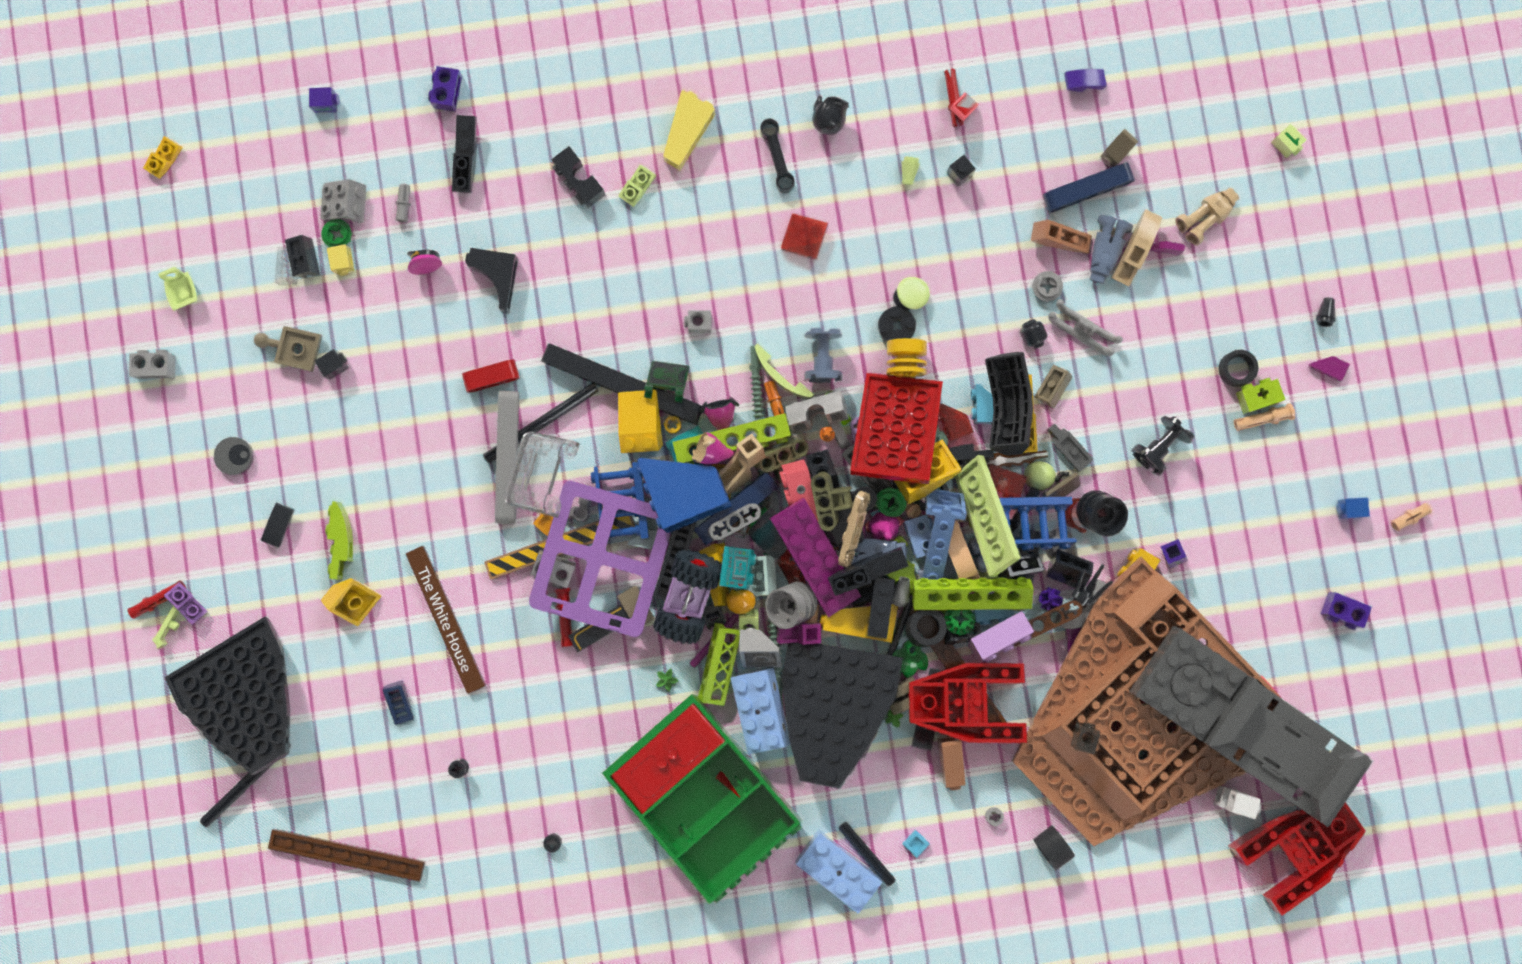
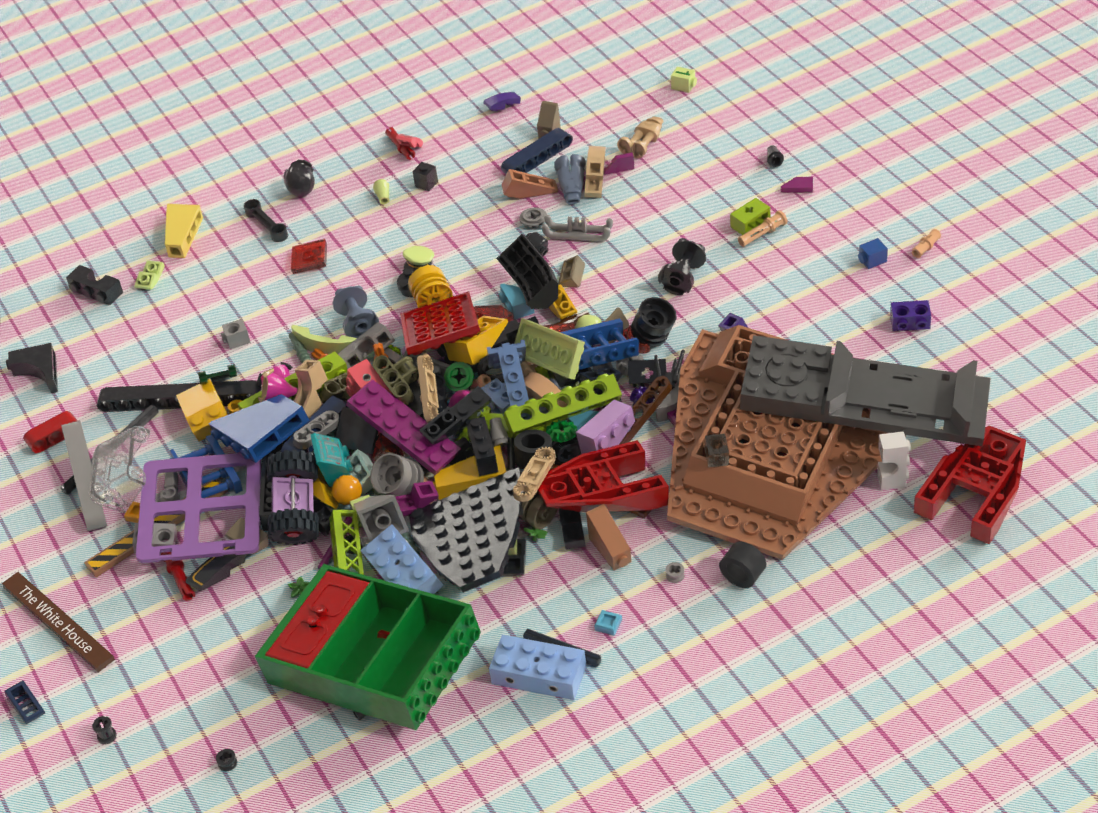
camera: 15 degrees left, 40 degrees down
(912, 683) = (534, 474): none -> tan plate
(1070, 447) = (604, 300): dark grey hinge -> none
(1251, 361) = (720, 200): black tyre -> none

